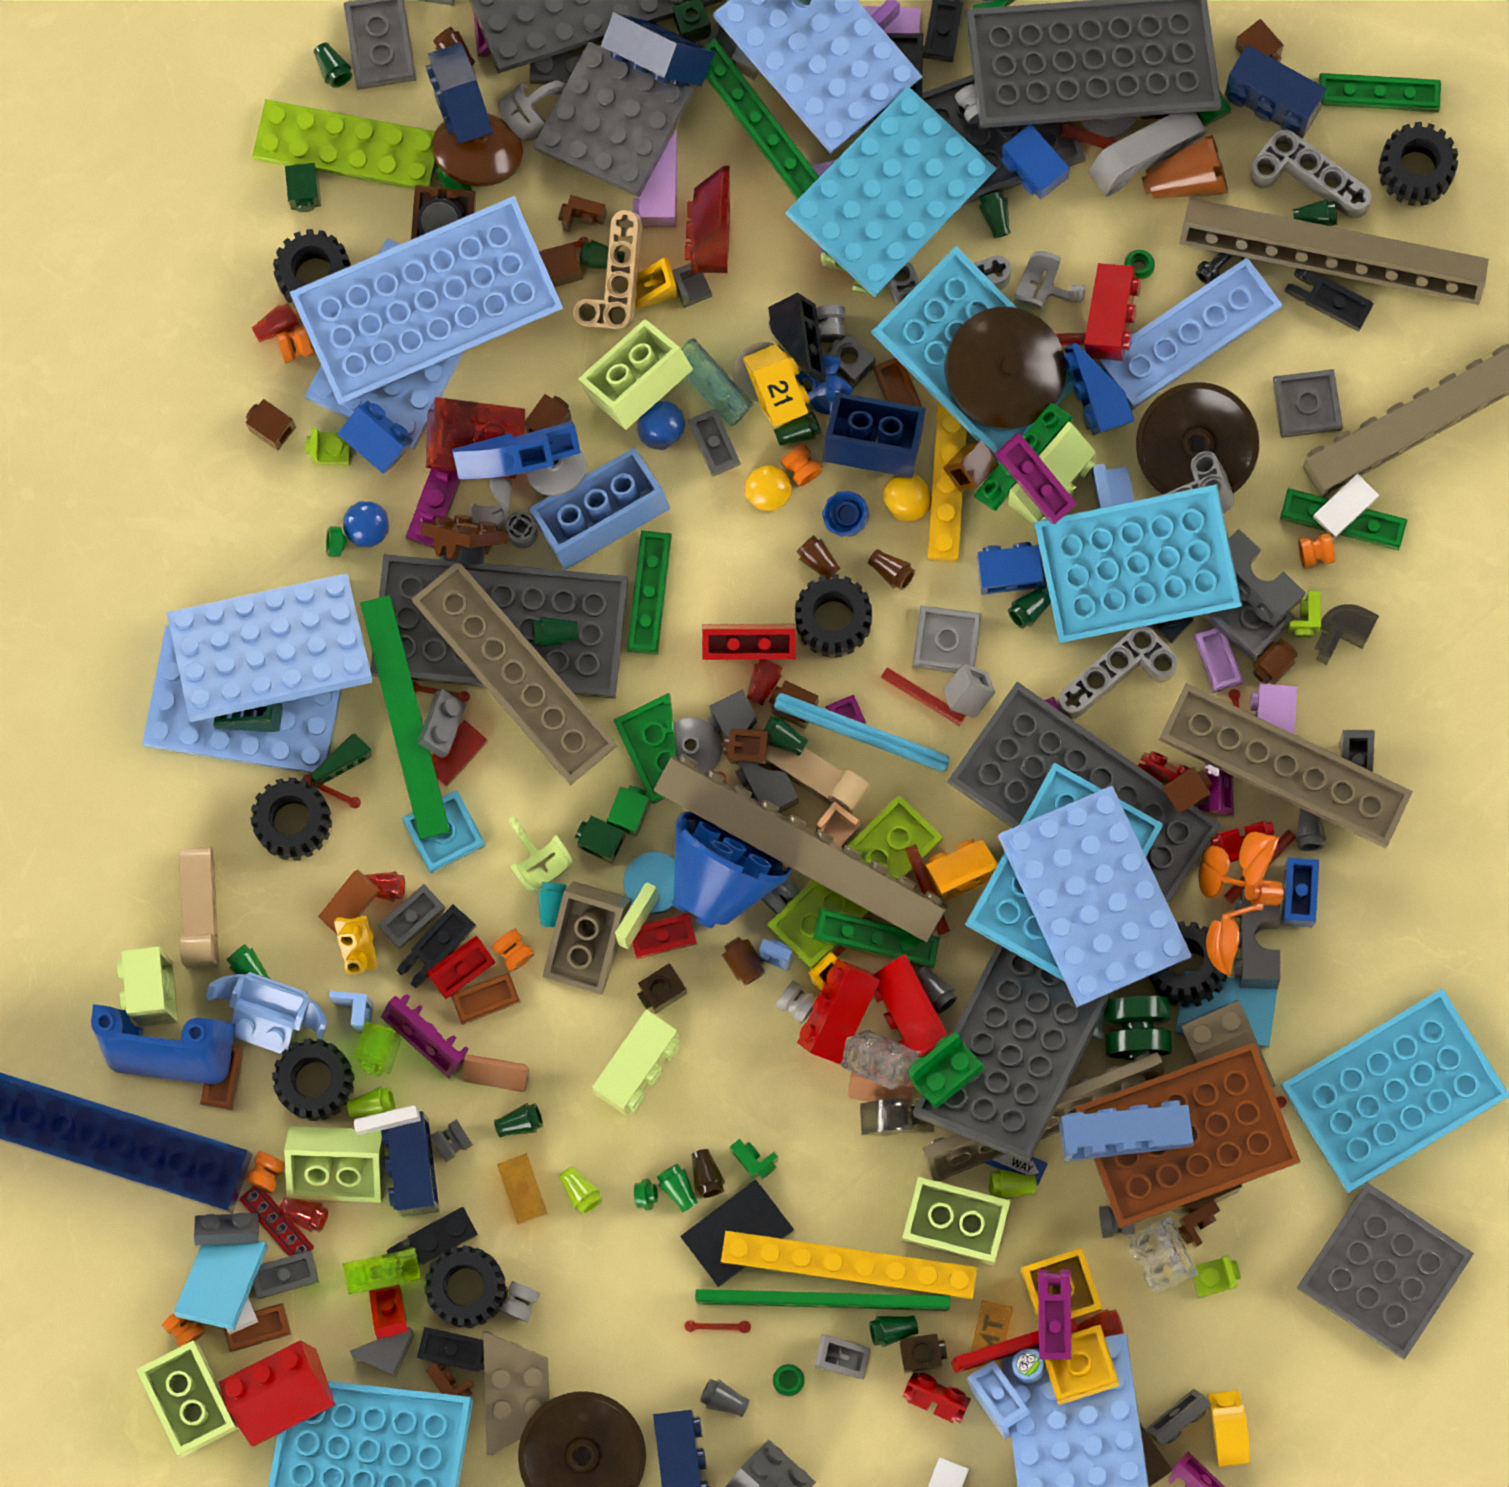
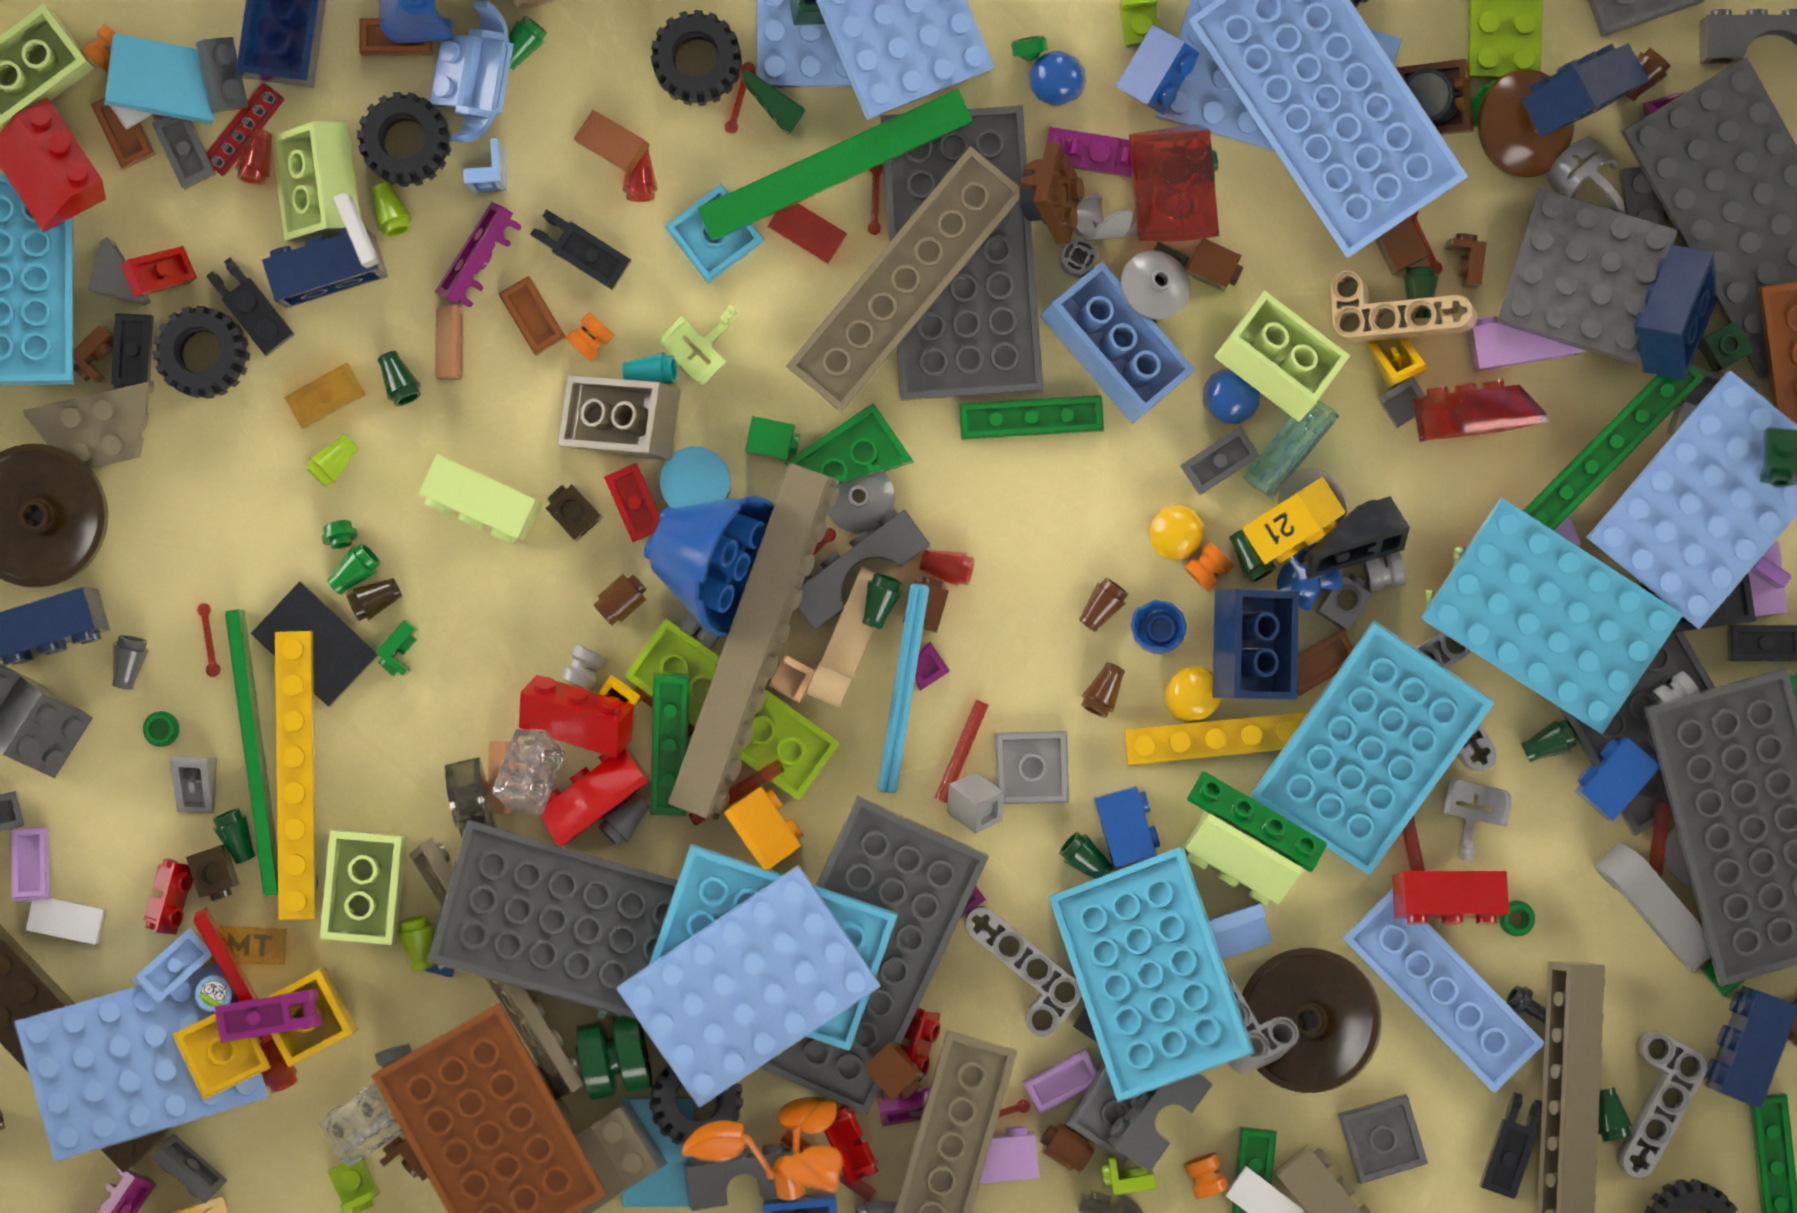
camera: 75 degrees right, 10 degrees up
(265, 1172) = (285, 103): orange wheel -> none
(356, 944) = (563, 159): yellow hips -> none
(377, 1049) = (447, 204): clear neon green brick -> none
(381, 1271) = (200, 255): clear neon green brick -> none
(411, 916) = (609, 215): dark grey plate -> none
(441, 723) = (835, 208): dark grey plate -> none
(458, 1137) = (363, 306): dark grey wheel -> none
(460, 967) = (560, 281): red plate -> none
(516, 455) = (1156, 236): blue slope -> none
(517, 1308) = (196, 415): light grey wheel -> none
(553, 631) = (961, 316): dark green cone -> none
(600, 839) = (733, 412): dark green brick -> none
(637, 915) = (647, 469): yellowish green tile -> none
(746, 746) = (858, 560): reddish brown bracket -> none
(748, 641) = (988, 541): red brick -> none
(776, 954) = (630, 635): medium blue plate -> none
(826, 591) = (1067, 628): black tyre -> none
(944, 1070) = (520, 848): green bracket -> none
(971, 466) = (1238, 762): reddish brown brick -> none
(1004, 368) = (1359, 783): dark brown dish -> none
(1035, 478) = (1226, 841): magenta plate -> none
(1100, 395) = (1345, 900): blue slope -> none
(1125, 1131) = (474, 1066): medium blue wedge -> none
(1188, 172) = (1635, 959): dark orange cone -> none

